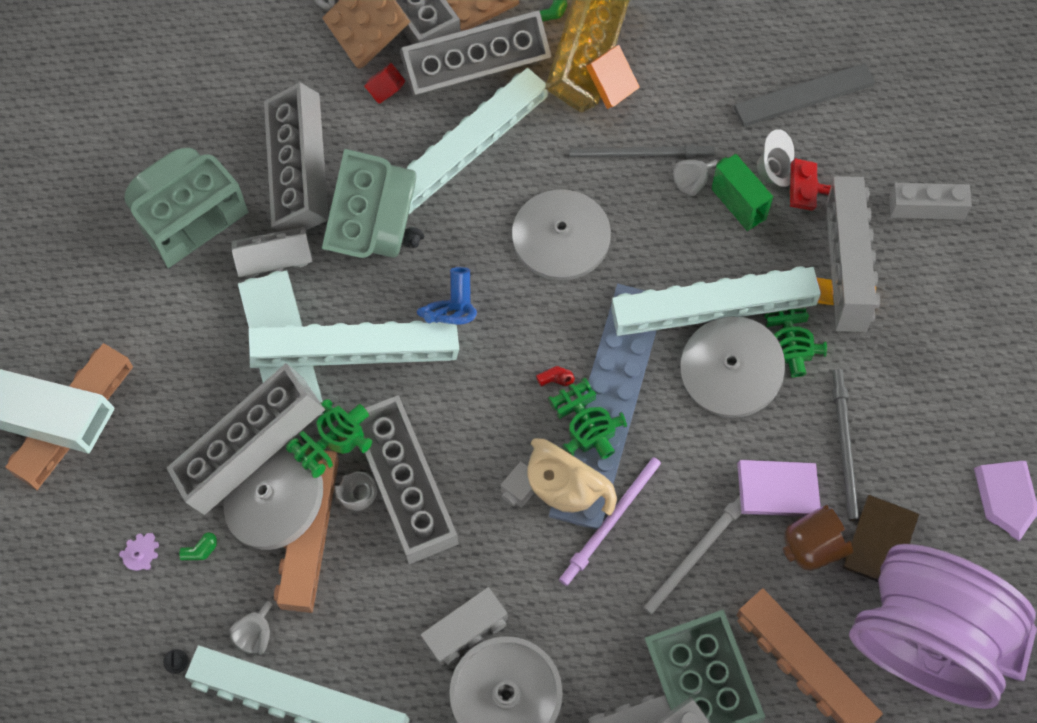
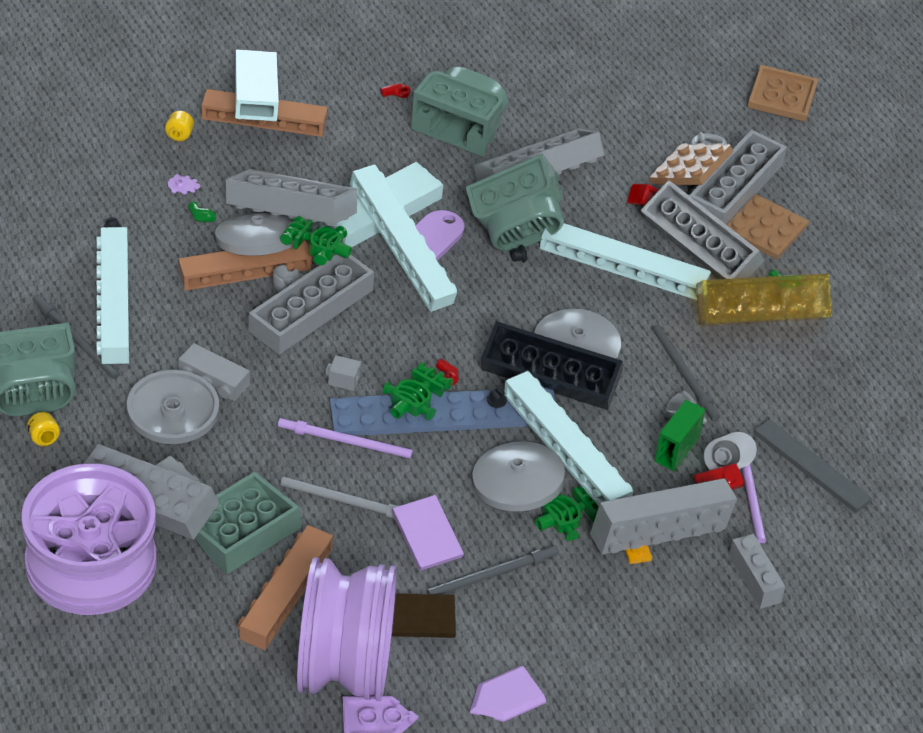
camera: 60 degrees right, 20 degrees down
(45, 521) = (179, 126): none -> yellow head
(99, 259) = (397, 89): none -> red arm
(252, 632) = (152, 258): light grey piece -> none
(271, 252) = (451, 171): light grey brick -> none
(346, 304) = (438, 234): none -> lavender tile
(459, 301) = (470, 293): blue piece -> none
(566, 481) = (358, 385): tan piece -> none
(600, 272) = (555, 364): none -> black brick
(612, 76) = (737, 325): tile -> none
(624, 344) = (497, 398): none -> black piece
(816, 540) = (394, 551): reddish brown cylinder -> none
(823, 163) = (753, 504): none -> lavender bar

